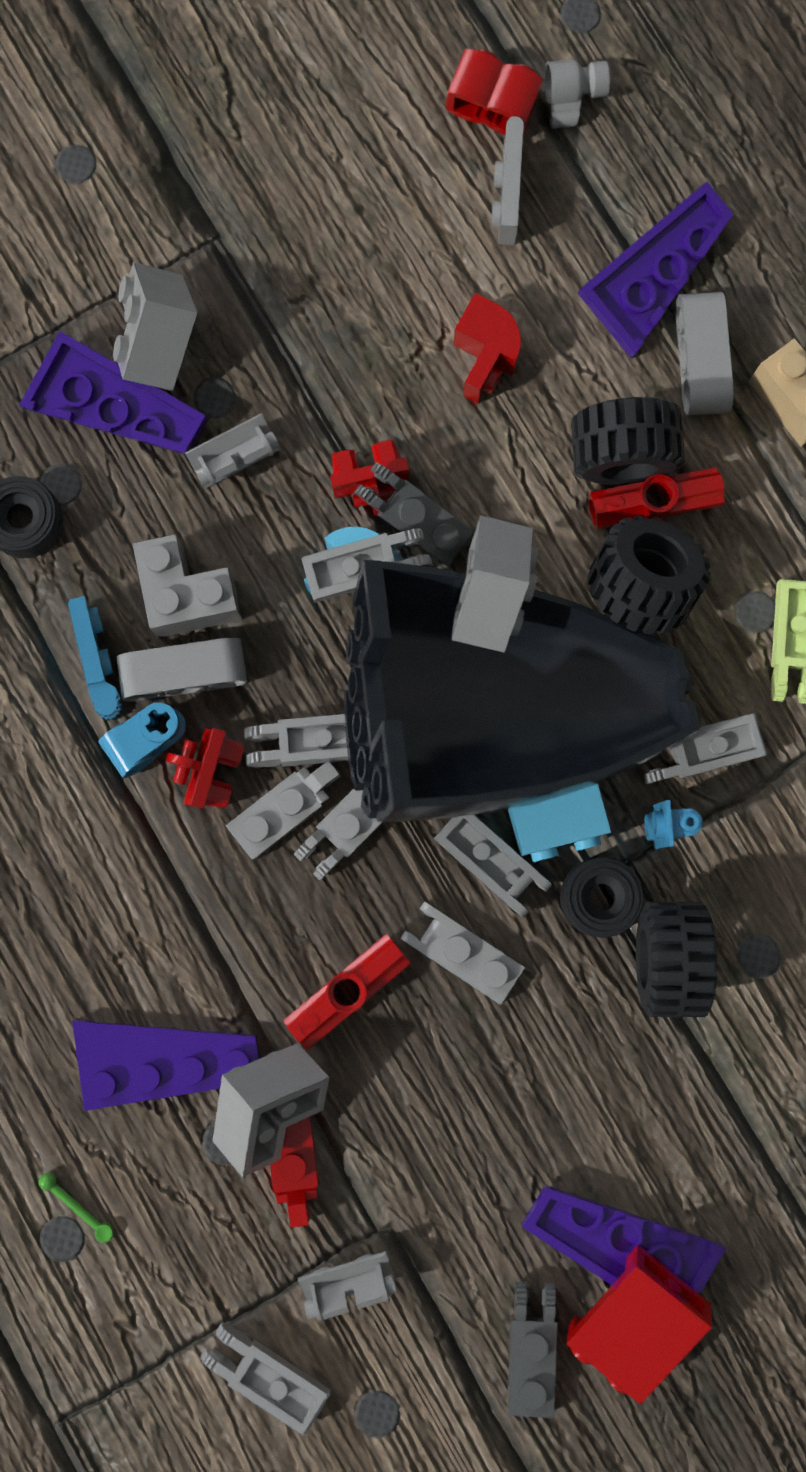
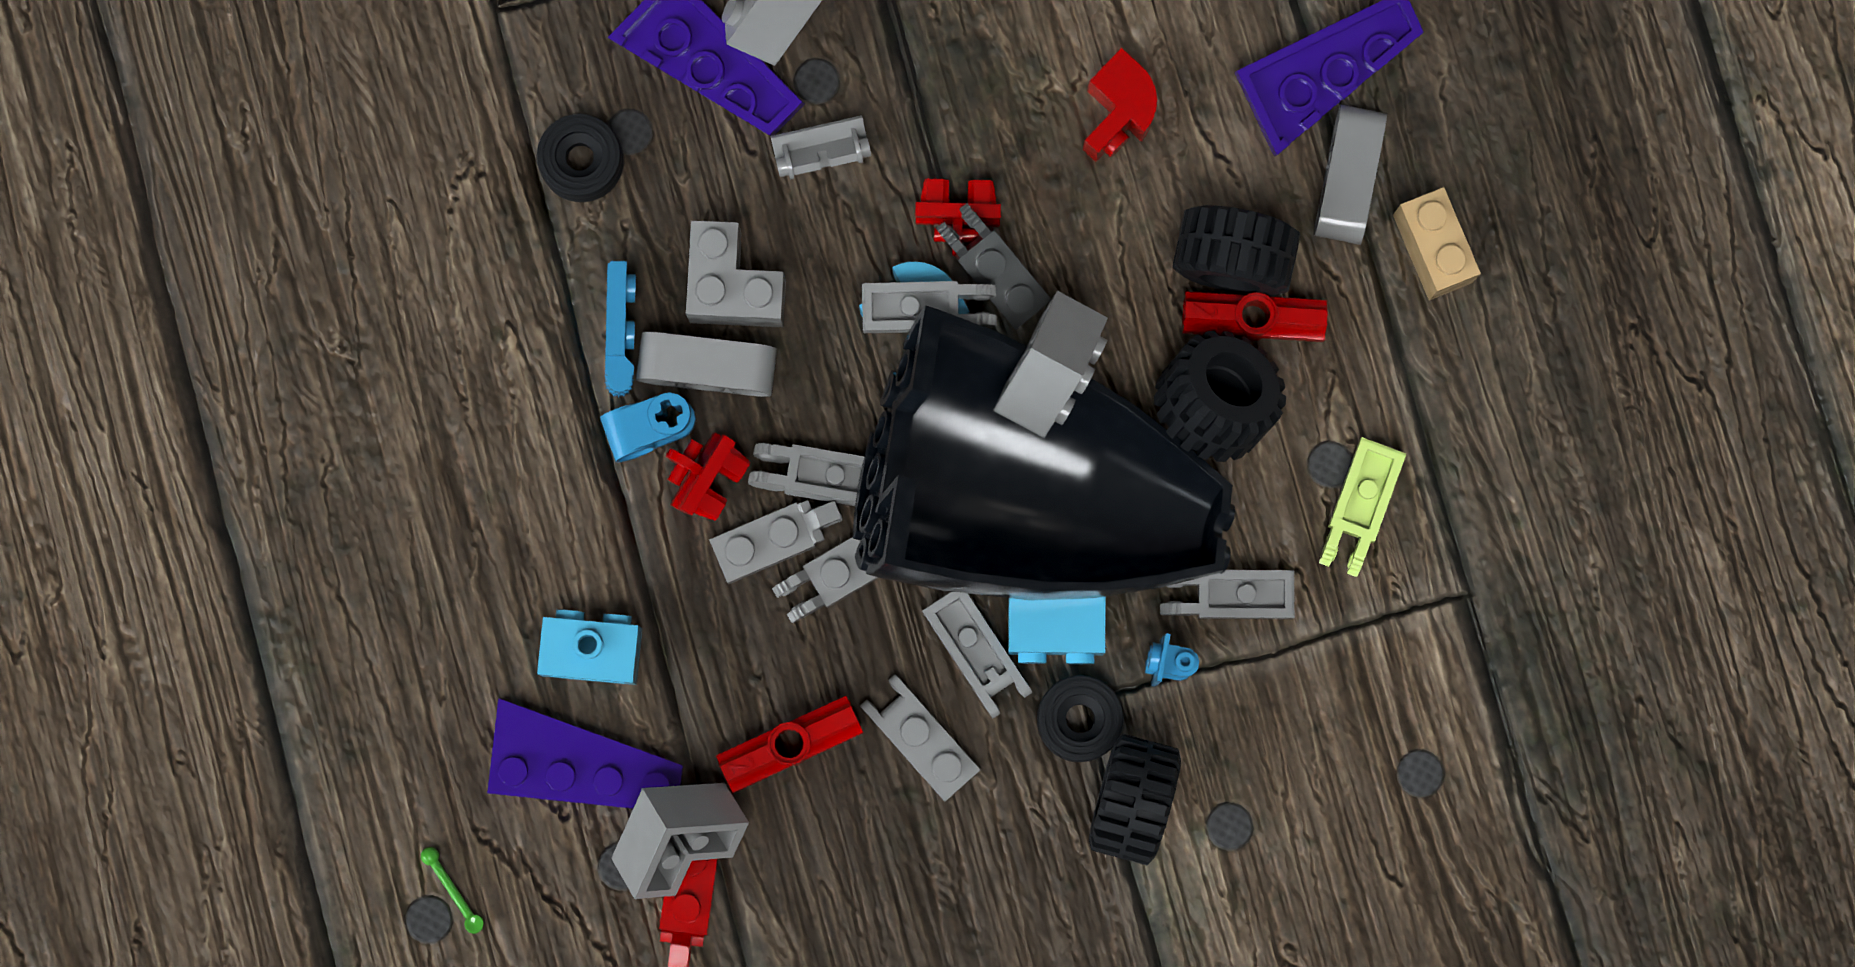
camera: 15 degrees right, 0 degrees up
(143, 954) = (590, 649): none -> medium azure brick

